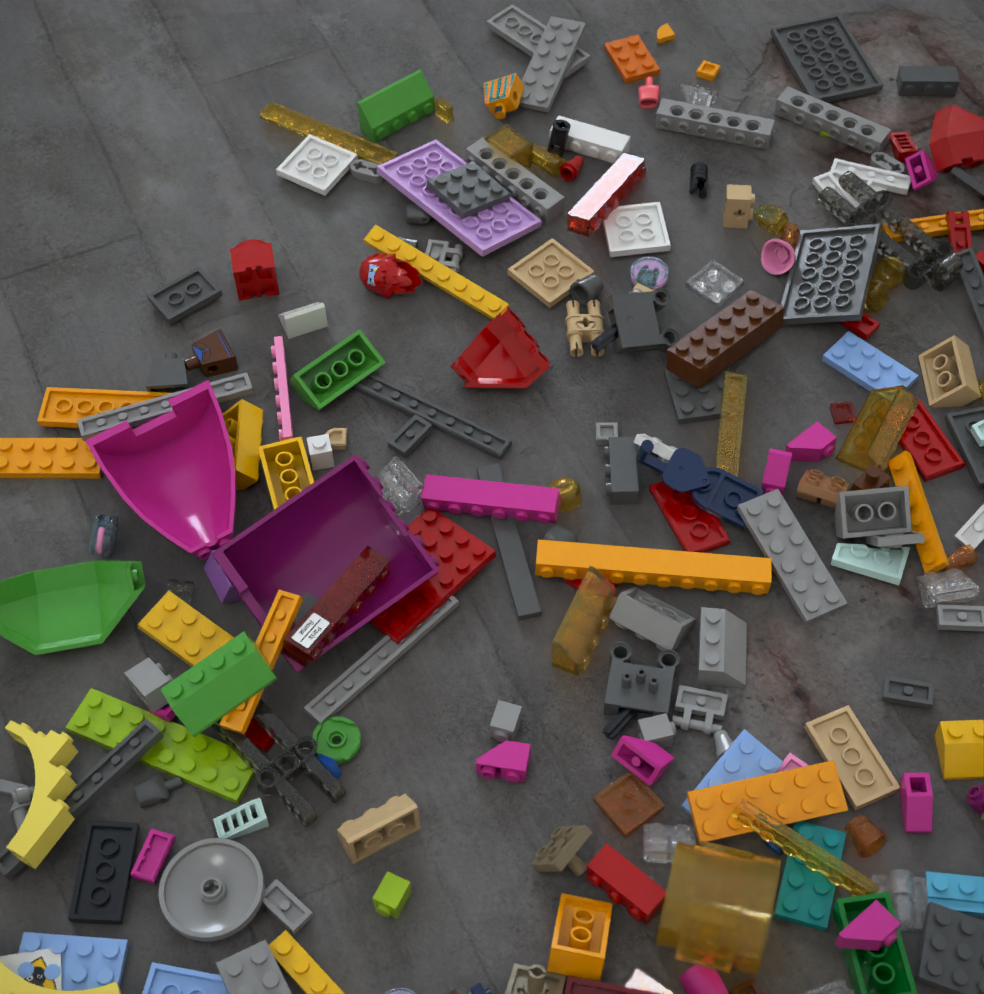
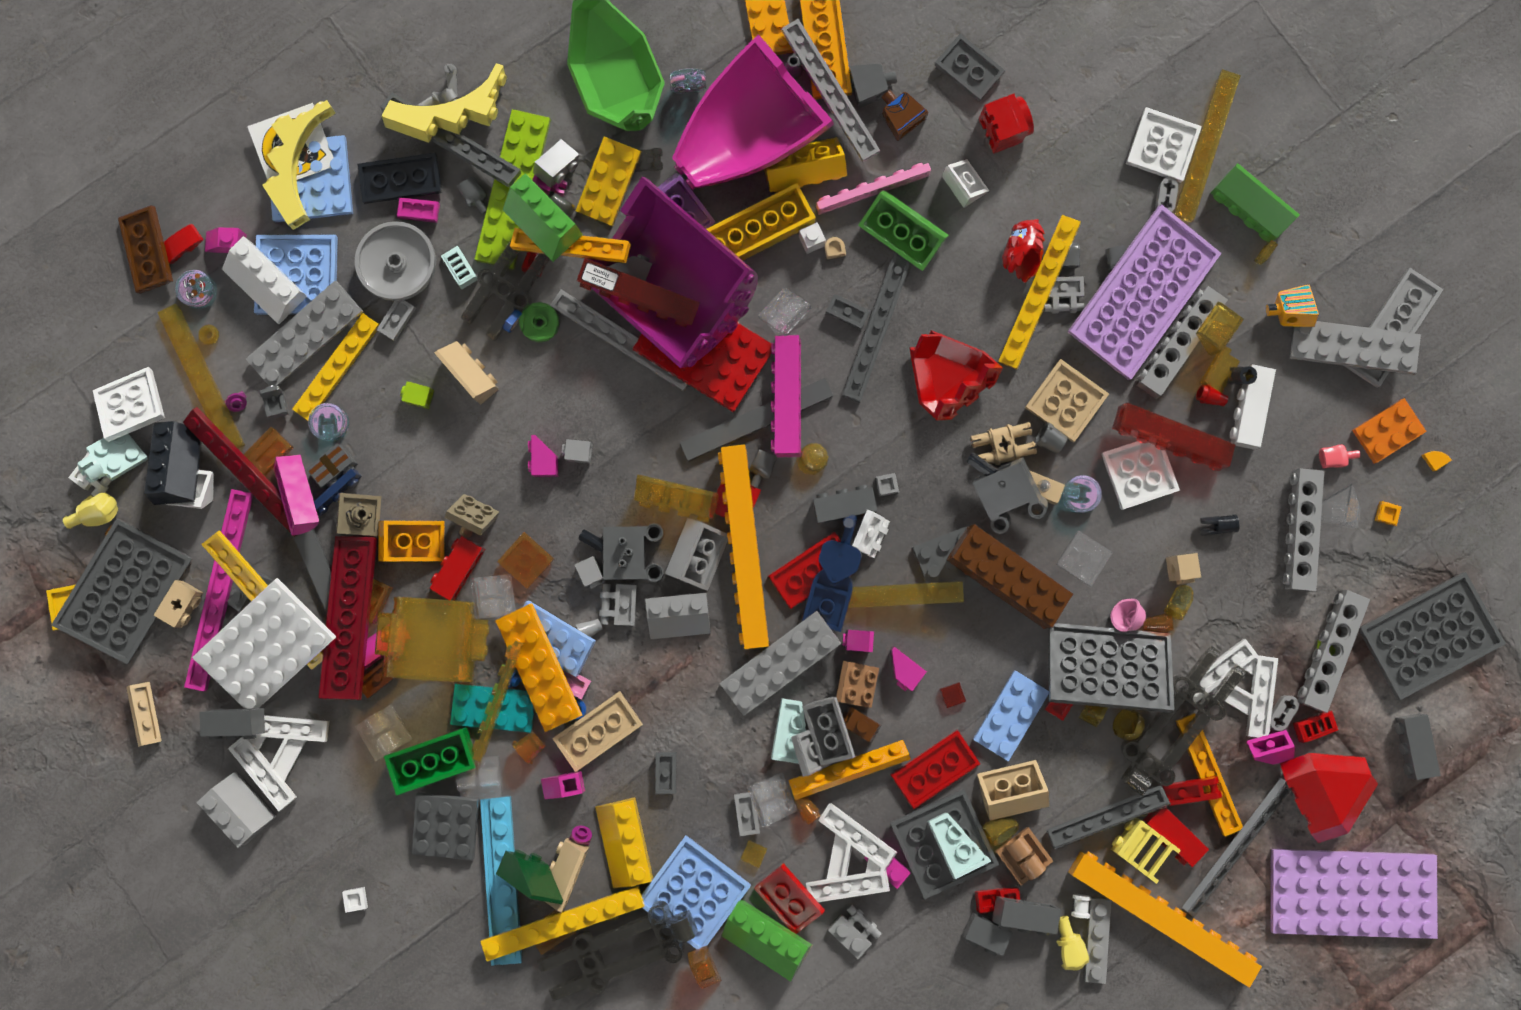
camera: 75 degrees right, 30 degrees up
(468, 190) = (1150, 300): dark grey plate -> none
(642, 758) = (560, 566): dark pink slope -> none
(870, 930) = (434, 755): dark pink slope -> none
(878, 428) = (931, 727): clear yellow slope -> none

